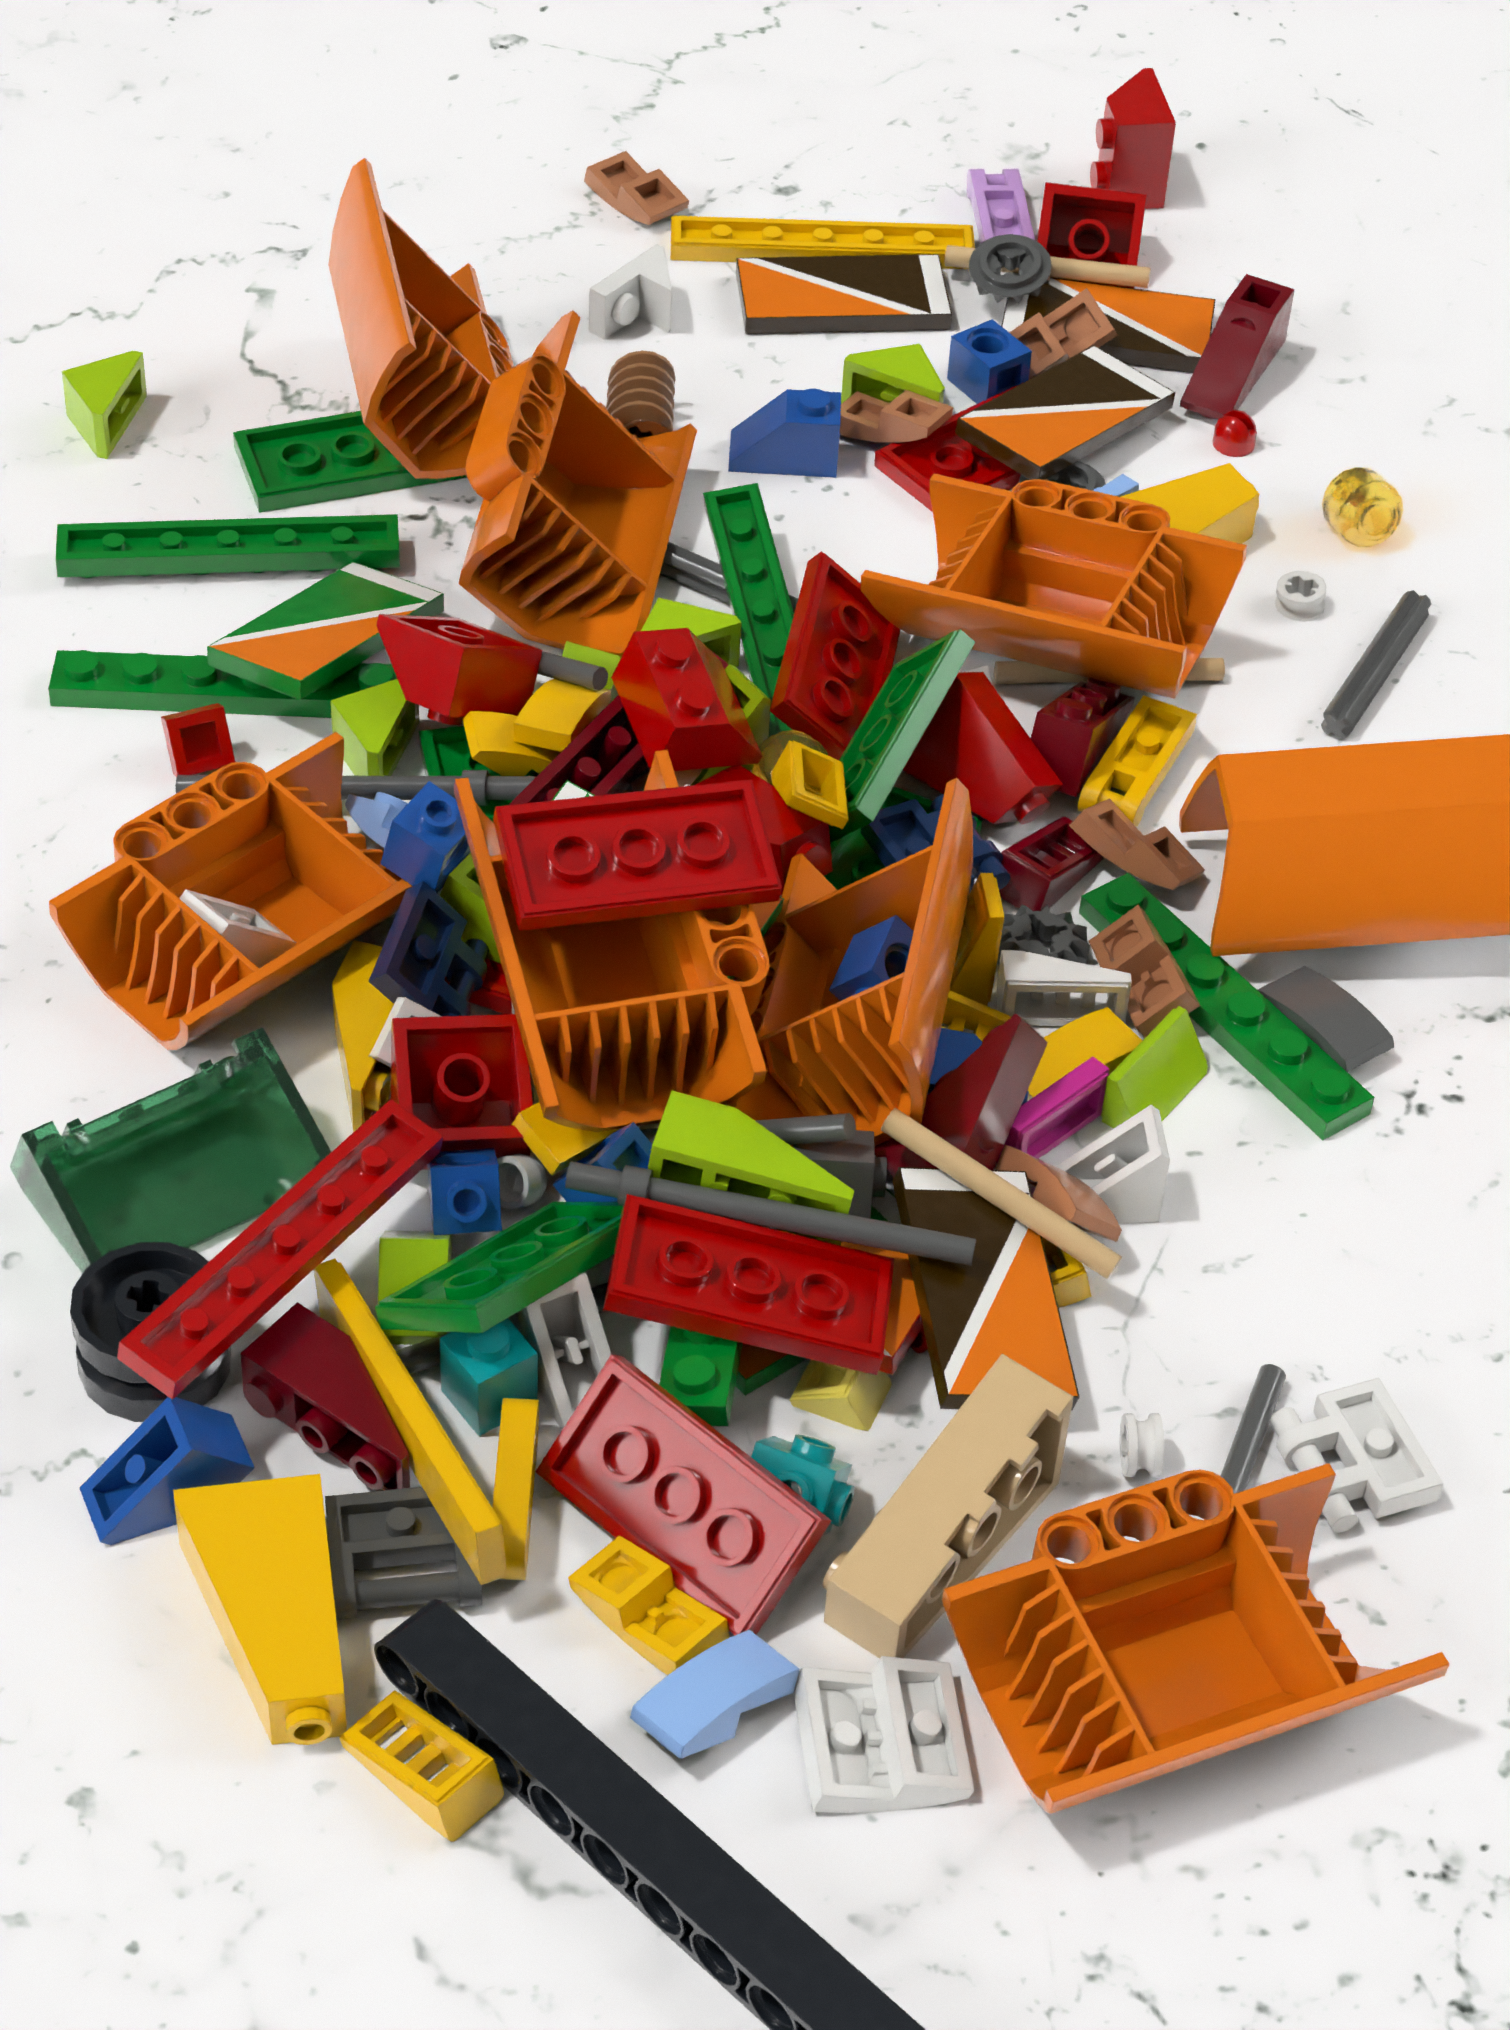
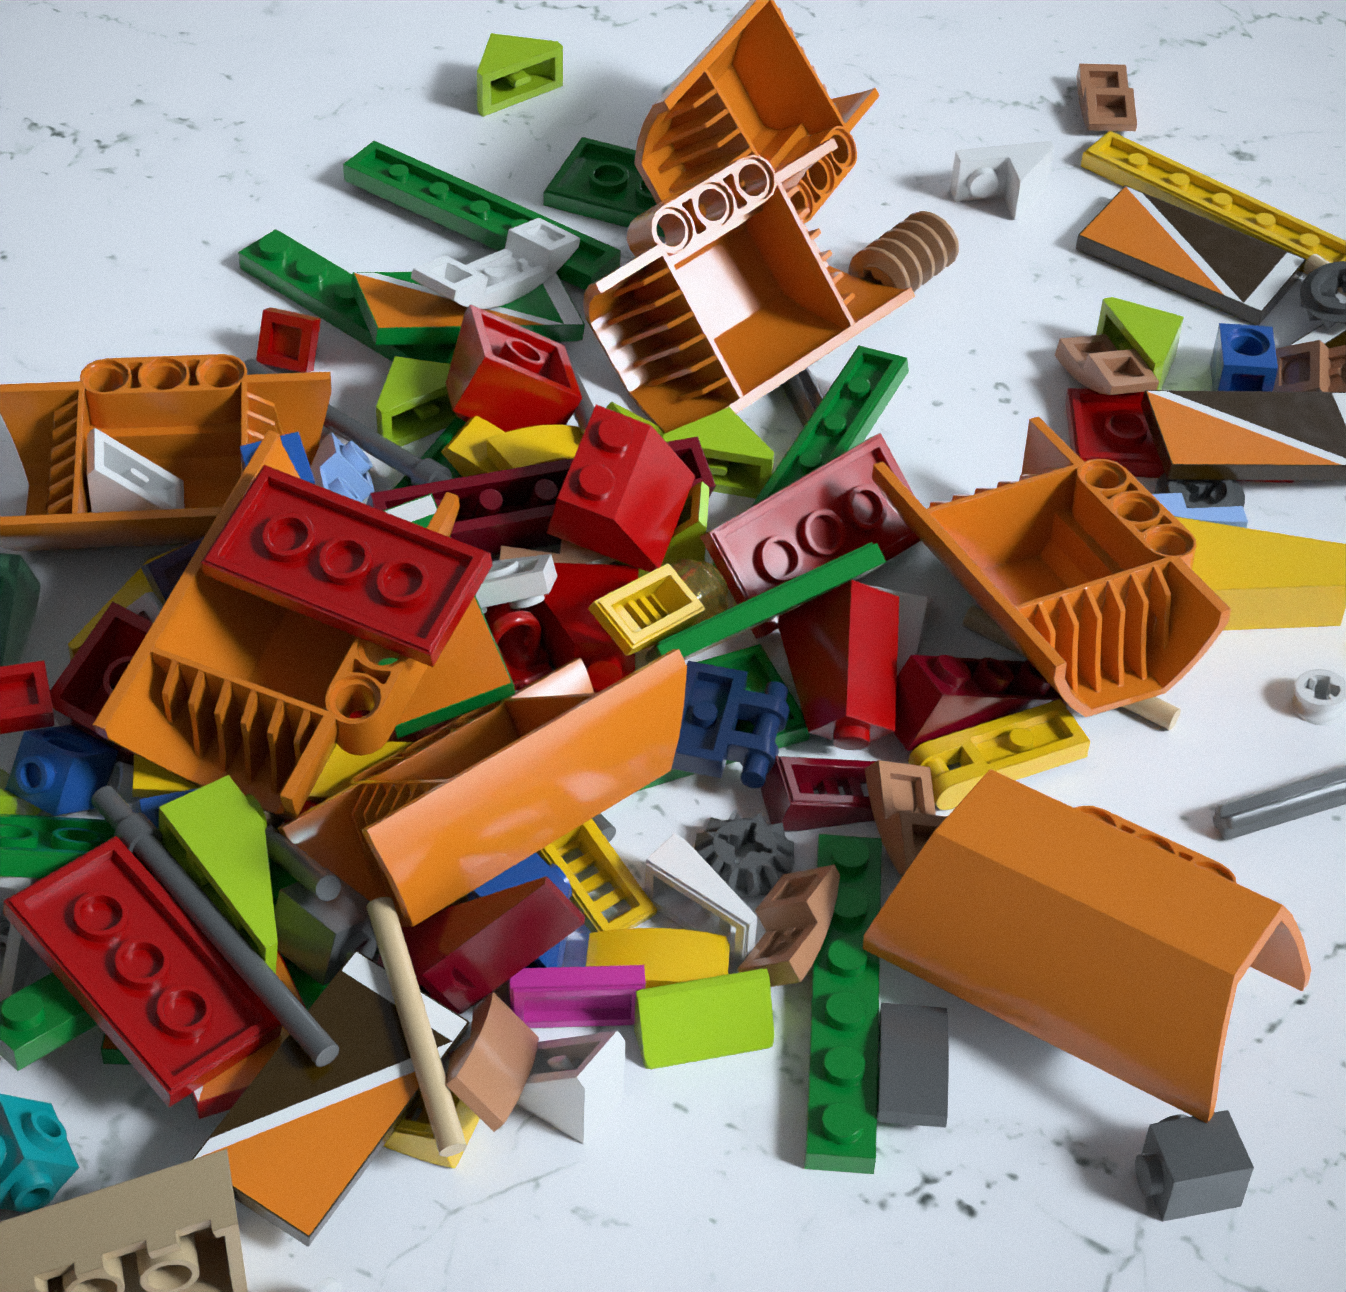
camera: 40 degrees right, 0 degrees up
(333, 570) = (529, 259): none -> white slope
(790, 436) = (1007, 343): blue slope -> none
(841, 1394) = (169, 1126): light yellow slope -> none
(979, 941) = (660, 814): yellow slope -> none

